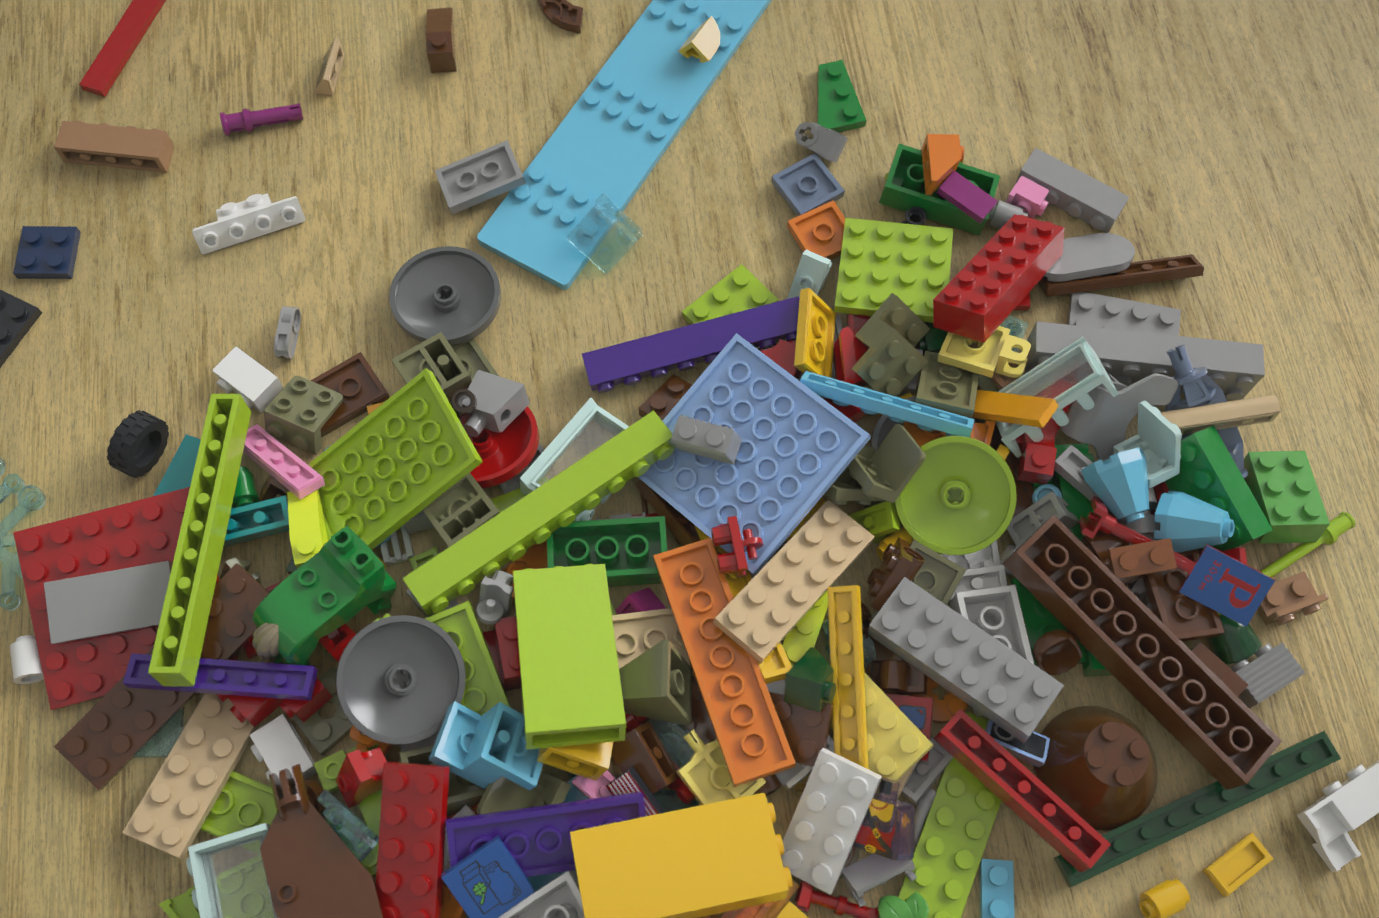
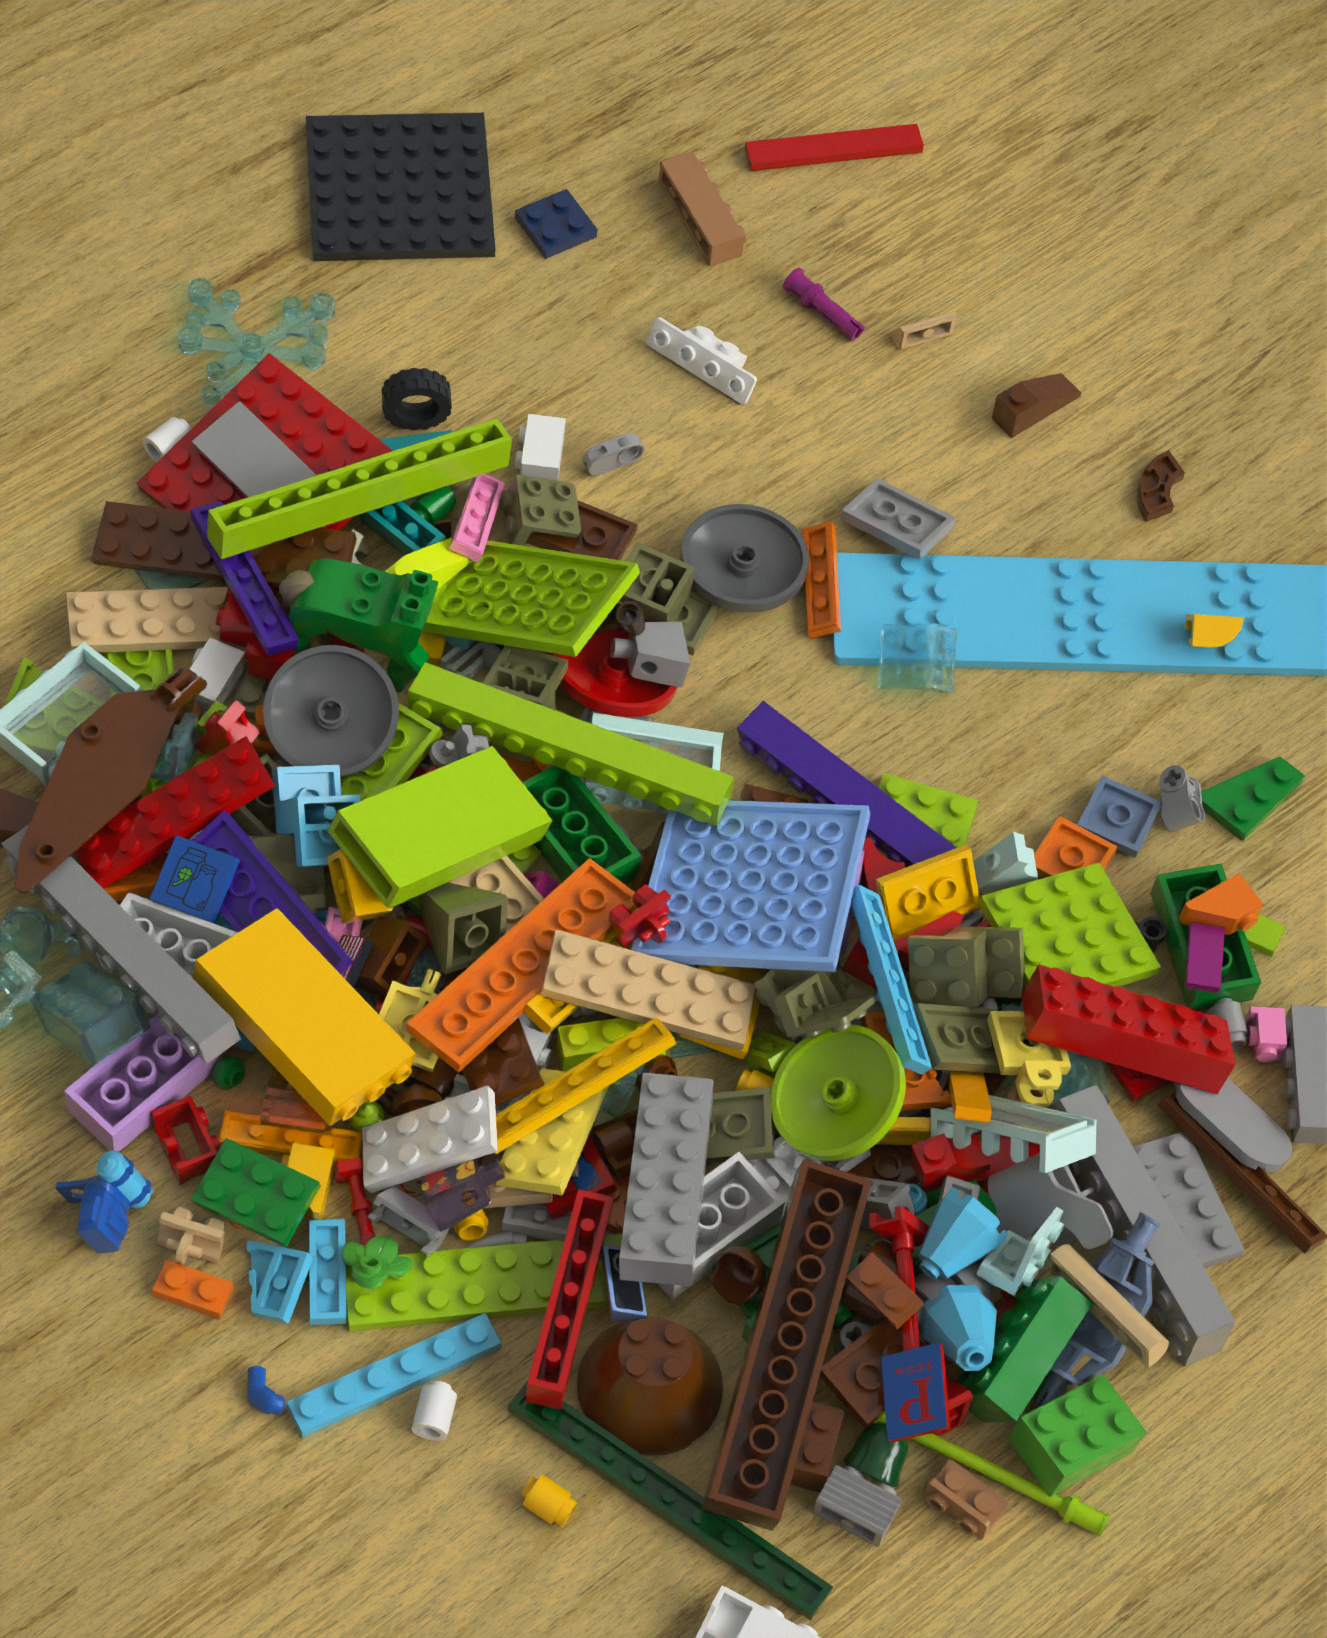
camera: 55 degrees right, 10 degrees down
(503, 260) = (822, 581): none -> orange tile
(706, 439) = (735, 836): light grey brick -> none
(783, 808) = (412, 1099): none -> reddish brown plate
(810, 682) = (550, 1046): dark green slope -> none
(898, 563) = (731, 1080): reddish brown plate -> none
(1237, 864) = (633, 1564): yellow tile -> none

